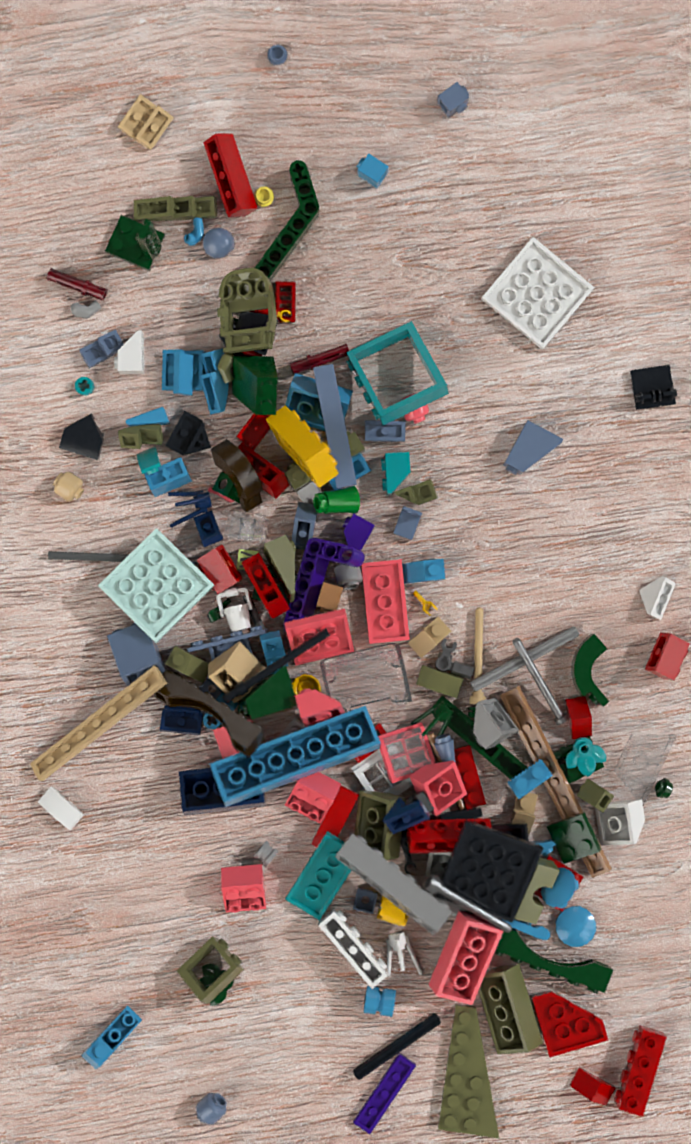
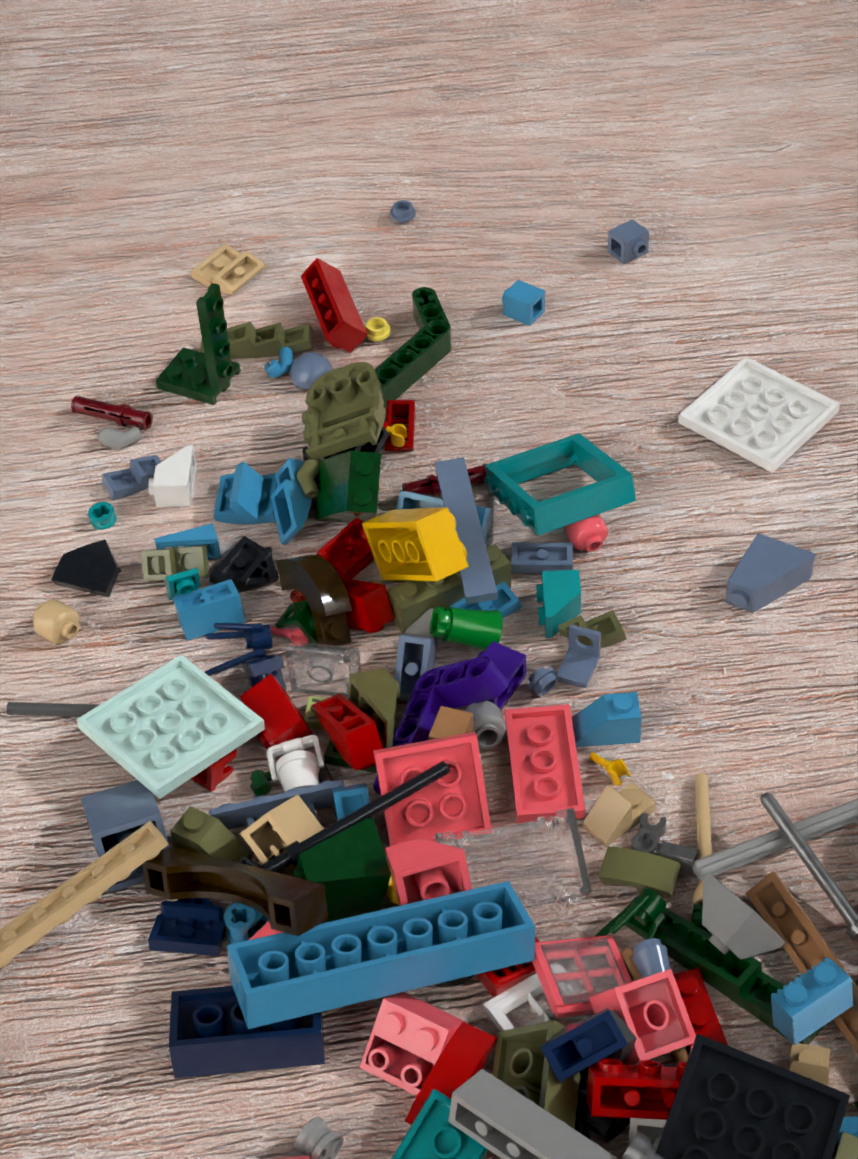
camera: 10 degrees right, 40 degrees down
(384, 538) = (542, 681): none -> sand blue plate

